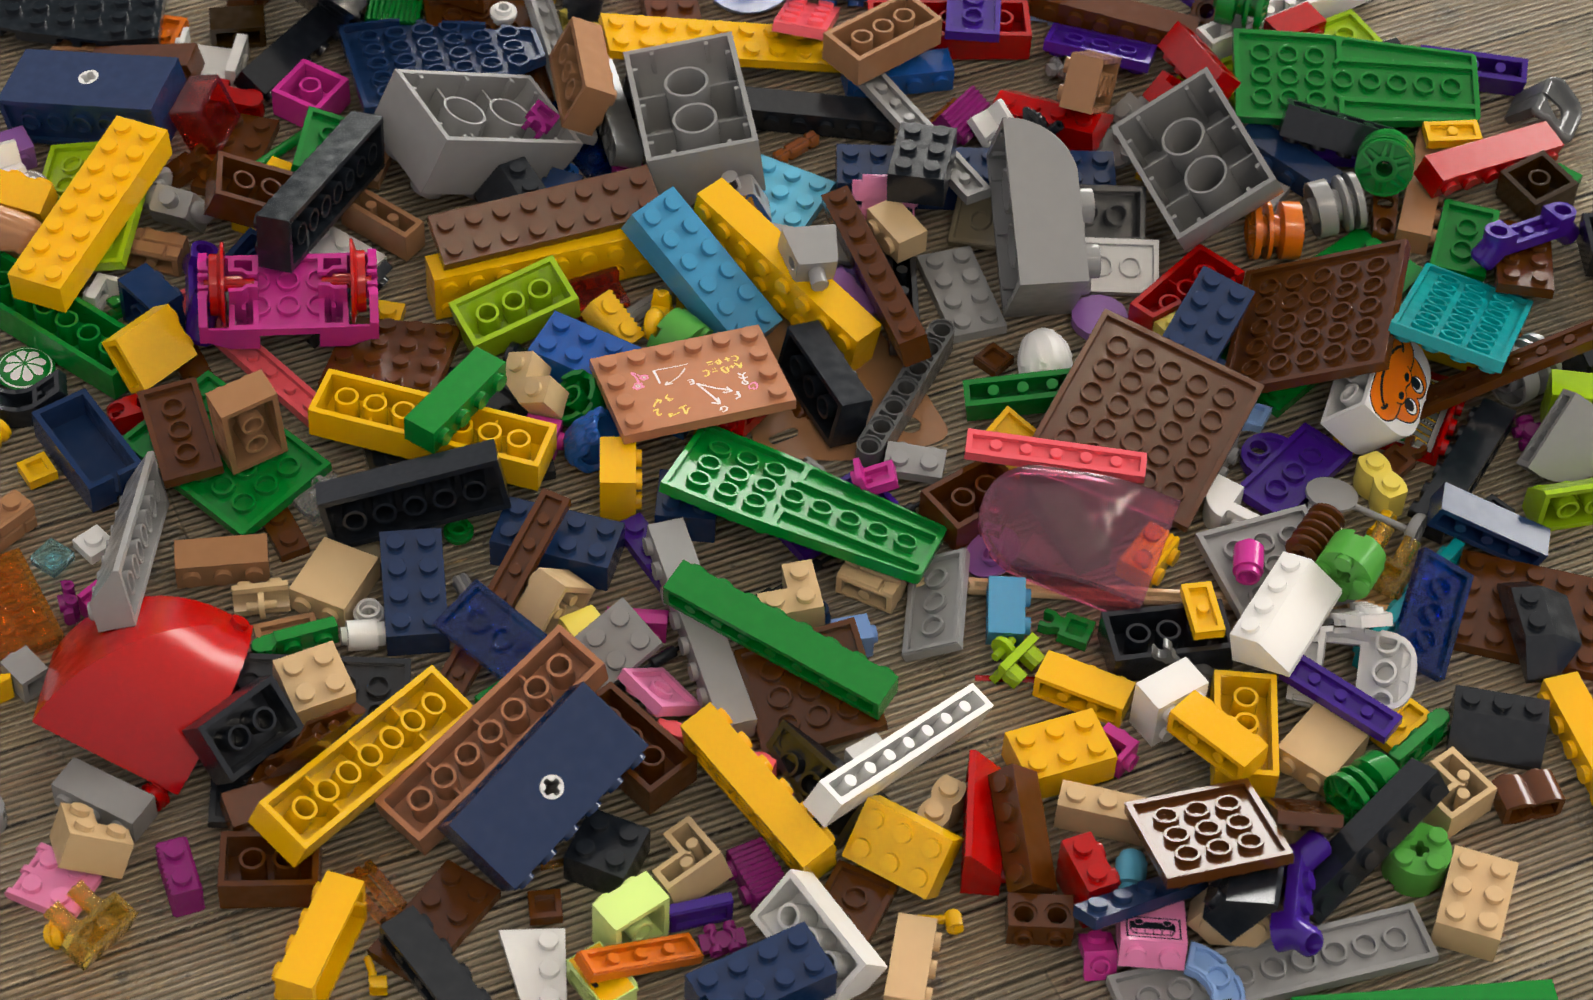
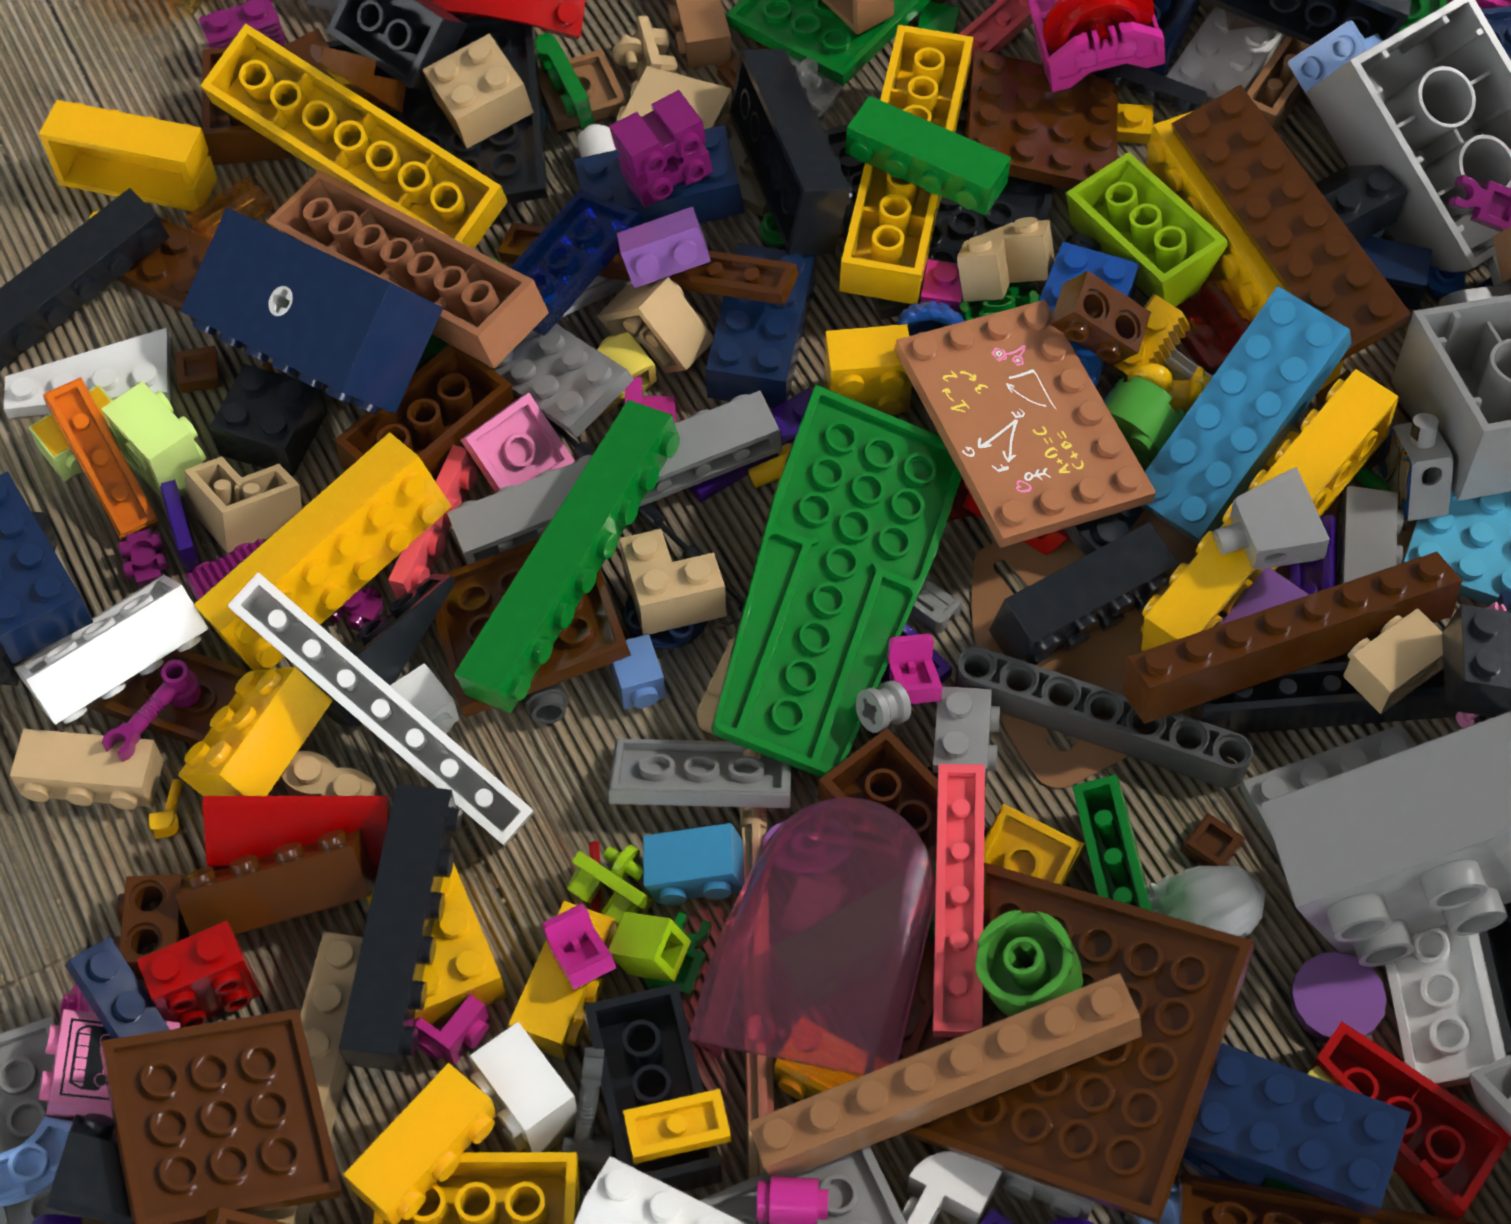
camera: 90 degrees right, 10 degrees up
(391, 173) = (1330, 54): none -> light blue bracket
(425, 552) = (661, 148): none -> magenta brick
(514, 564) = (663, 247): none -> medium lavender brick
(617, 327) = (1100, 318): none -> reddish brown brick
(854, 900) = (178, 688): none -> magenta brick
(904, 491) = (883, 706): none -> light grey wheel
(1066, 746) = (399, 929): none -> black brick
(1070, 631) = (649, 946): none -> lime brick
(1079, 659) = (577, 946): none -> dark pink bracket
(1112, 416) = (1023, 939): none -> bright green brick
(1181, 469) = (946, 1078): none -> medium nougat brick

